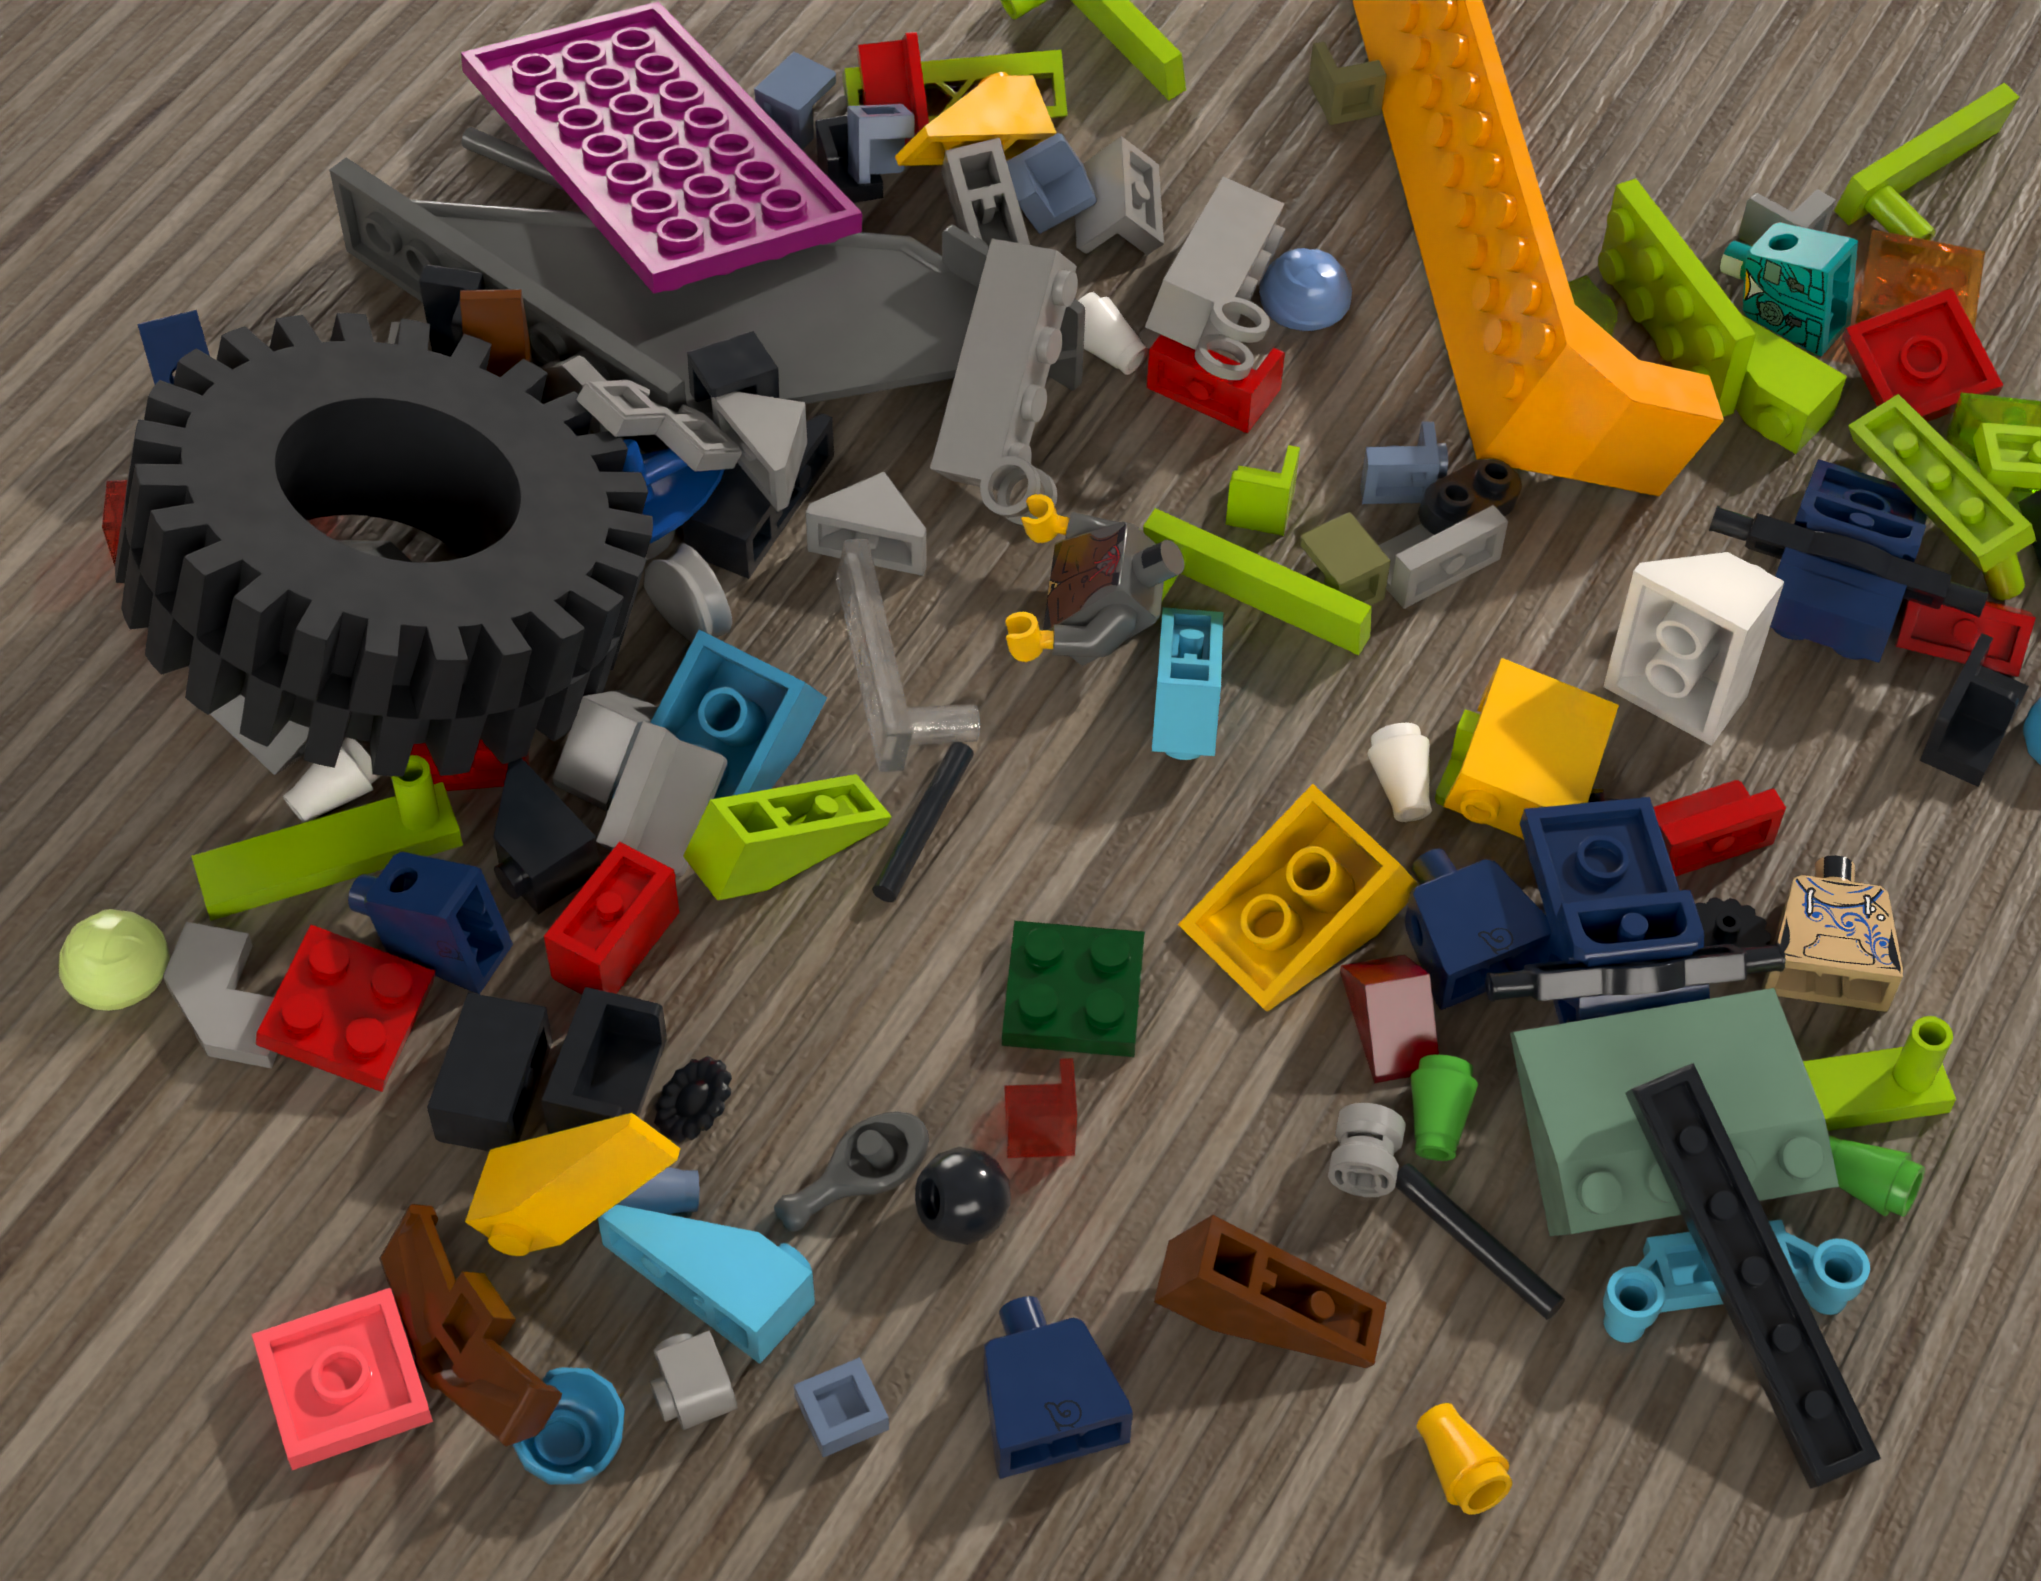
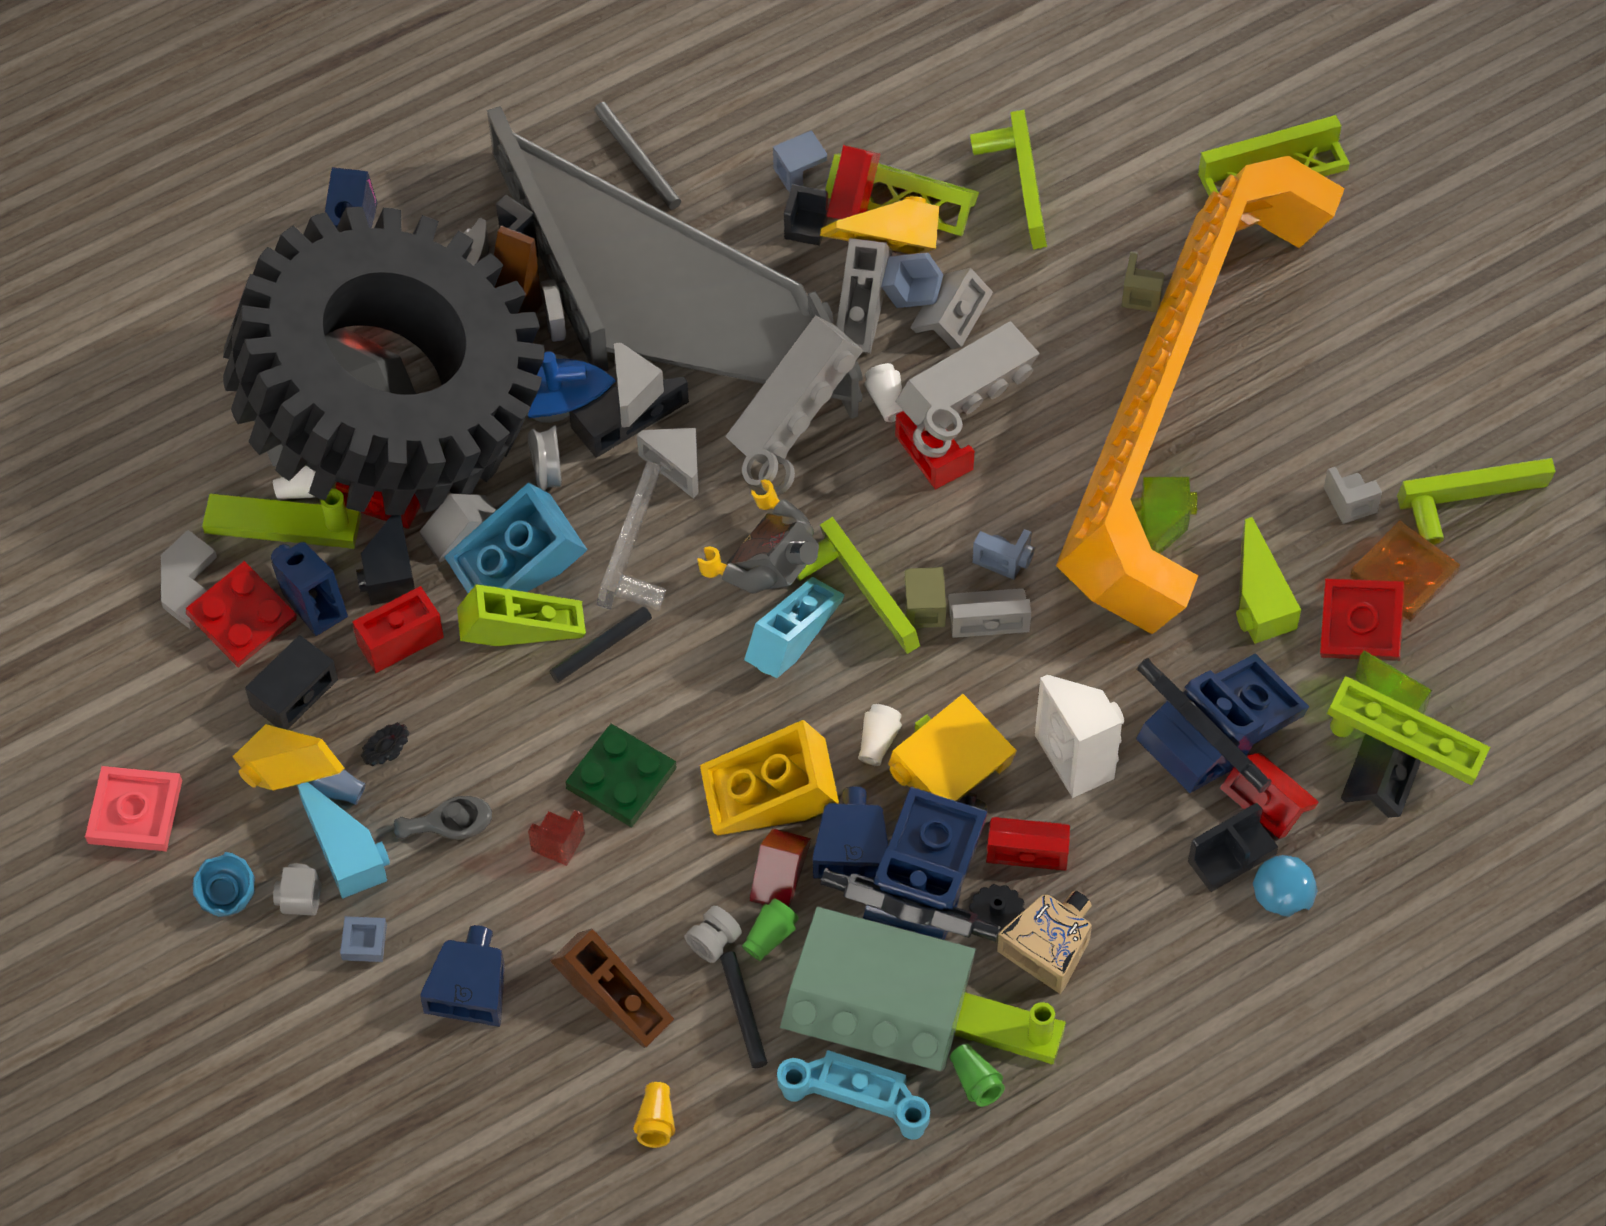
camera: 30 degrees right, 5 degrees up
(113, 960) = (142, 534): yellowish green piece -> none
(460, 1332) = (200, 811): reddish brown plate -> none
(605, 1060) = (350, 707): black panel -> none
(628, 411) = (591, 361): light grey tile -> none
(660, 146) = (692, 163): magenta plate -> none
(662, 796) = (460, 566): light grey panel -> none
(732, 366) = (638, 331): black panel -> none
(875, 138) = (820, 209): sand blue panel -> none
(962, 1195) = (487, 859): black piece -> none
(1262, 497) = (911, 533): lime panel -> none
(1305, 290) = (1026, 413): medium blue piece -> none
(1468, 493) = (1032, 586): black plate -> none
(1674, 294) = (1229, 513): lime plate -> none
(1752, 1276) = (857, 1093): black tile -> none
(1797, 283) = (1320, 537): teal torso -> none
(1948, 492) = (1307, 708): lime piece -> none

